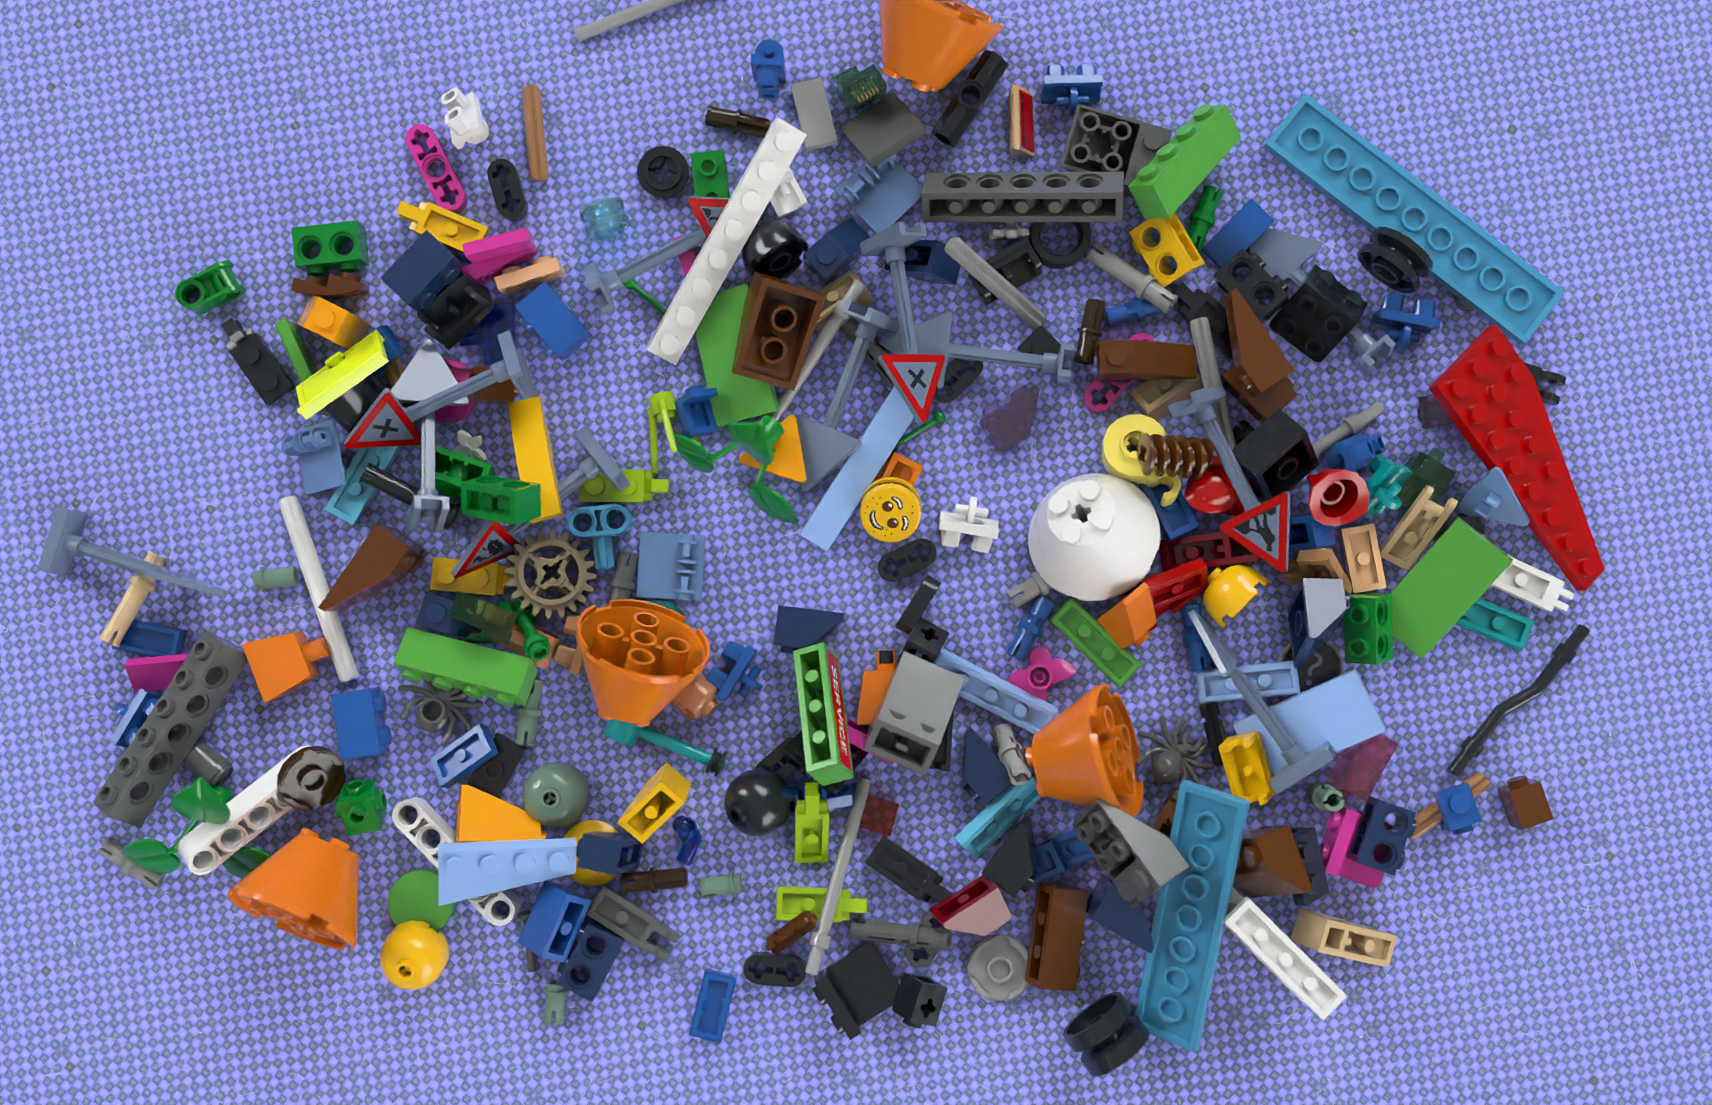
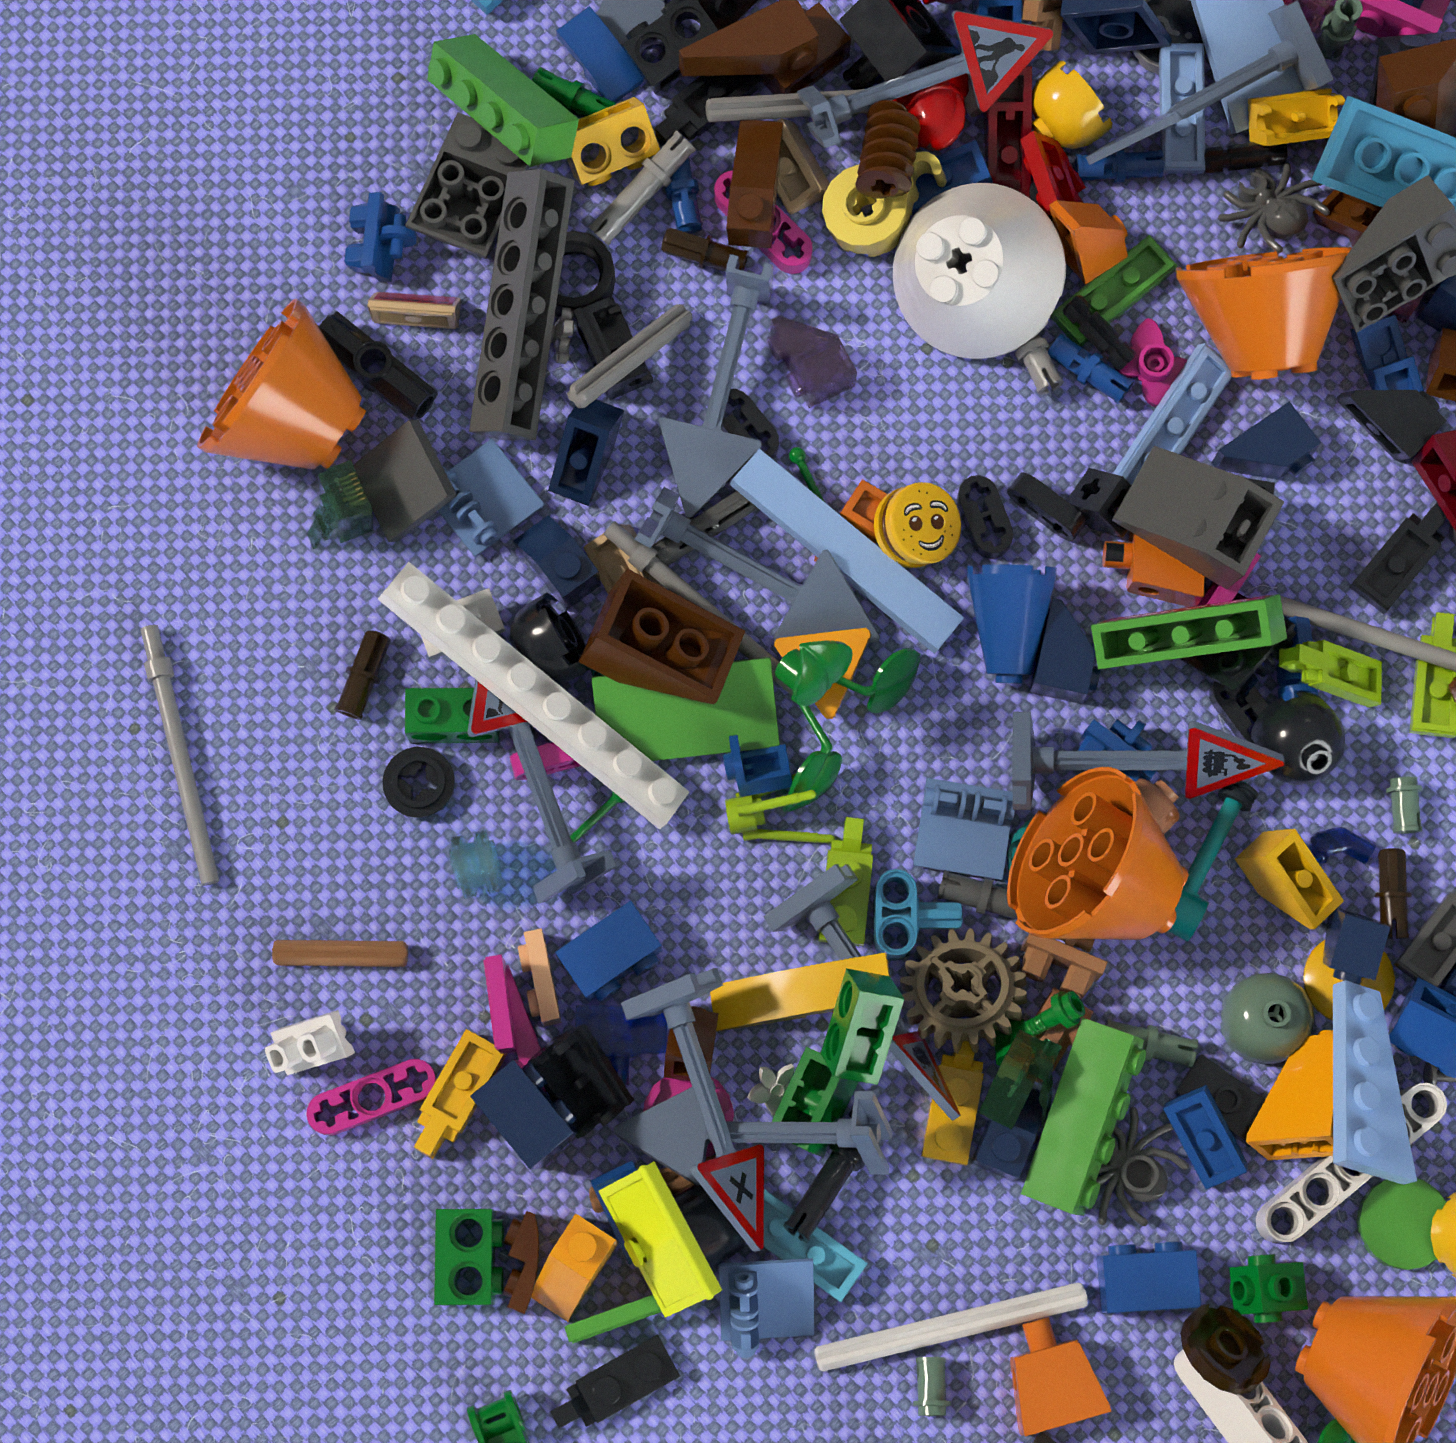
camera: 85 degrees left, 10 degrees down
(378, 563) = (931, 1225): reddish brown slope -> none
(500, 192) = (412, 989): black beam -> none
(731, 732) = (1210, 760): none -> sand blue piece
(768, 68) = (299, 619): blue hips -> none
(814, 114) = (361, 570): light grey slope -> none
(830, 584) = (1010, 616): none -> blue cone
(879, 815) = (1323, 587): clear red tile -> none
(911, 372) = (739, 469): sand blue piece -> none
(965, 522) = (941, 427): white hips -> none
(997, 817) = (1337, 436): medium azure plate -> none
(1011, 754) = (1257, 404): light grey pin -> none
(1039, 342) = (713, 316): black plate -> none
(1057, 632) = (1099, 332): none -> black axle

